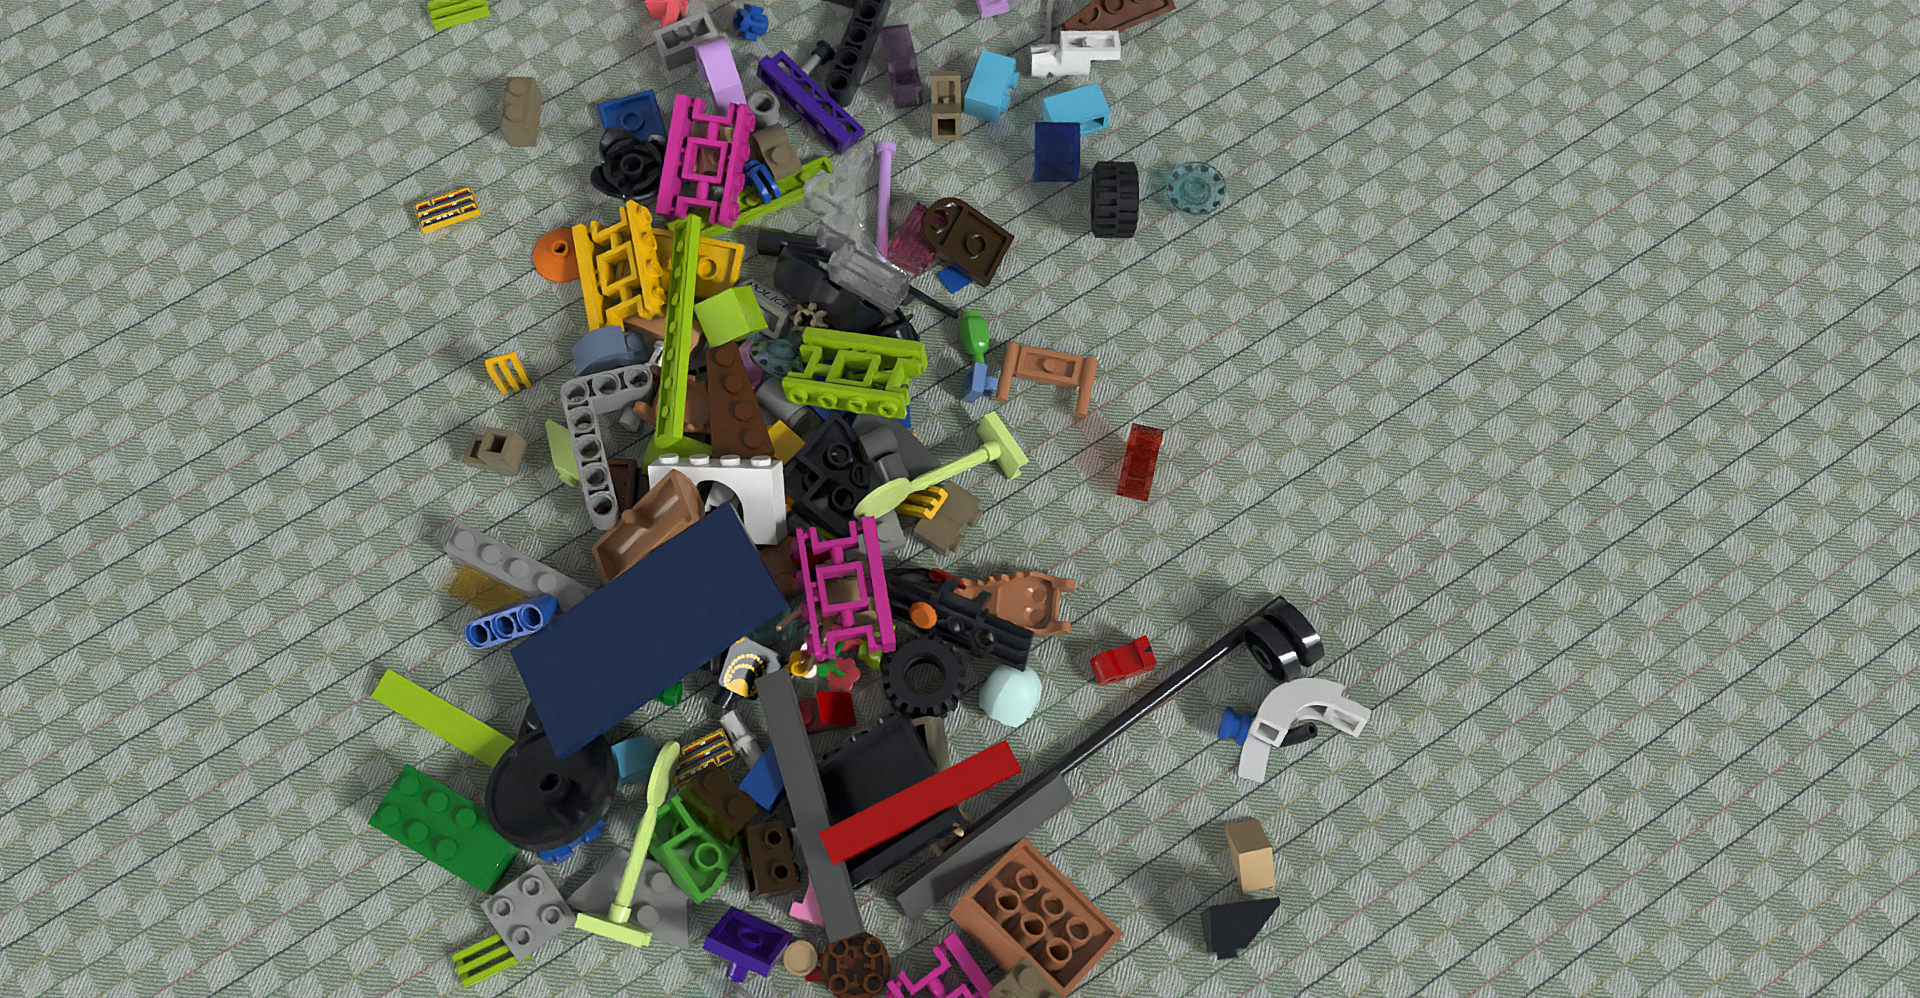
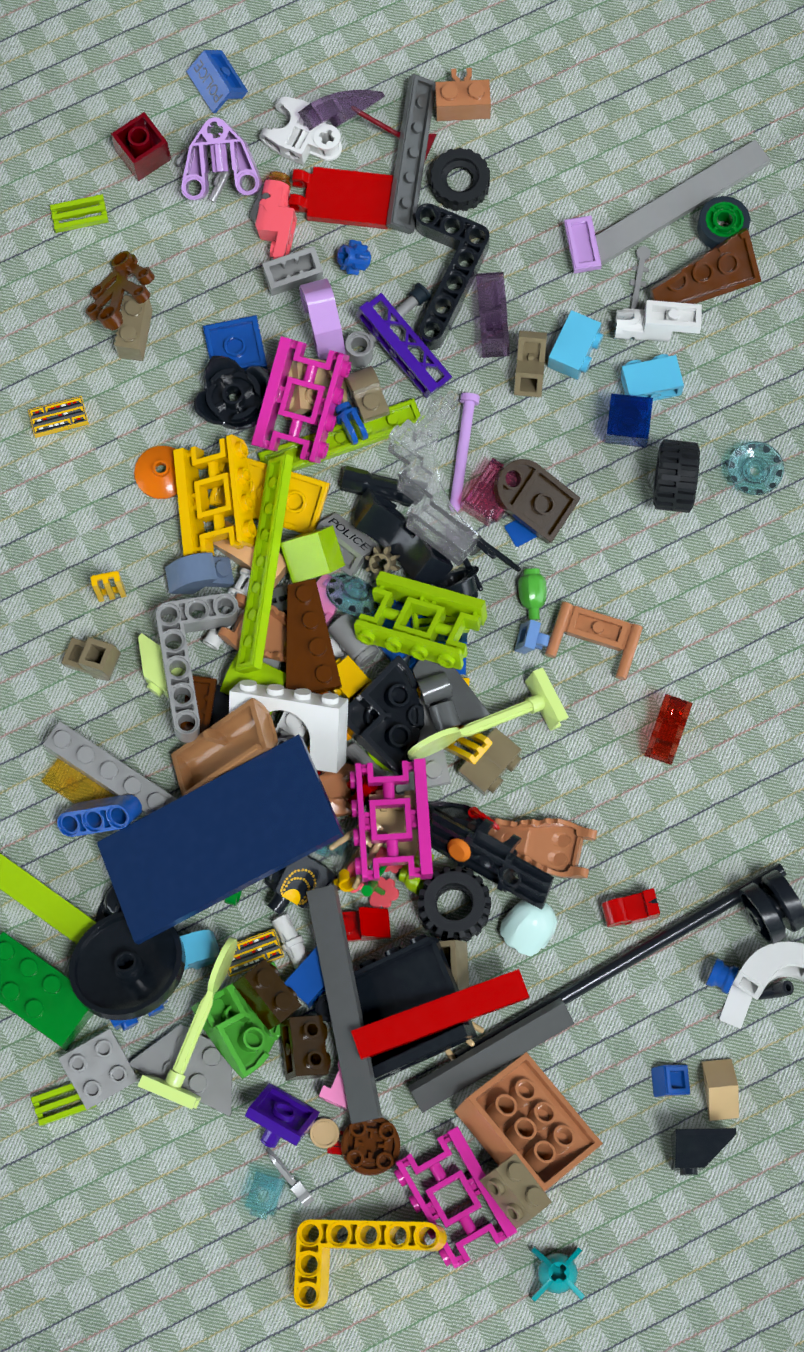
camera: 10 degrees right, 5 degrees up
(492, 82) = (123, 265): none -> reddish brown plant
(1191, 851) = (670, 1080): none -> blue slope

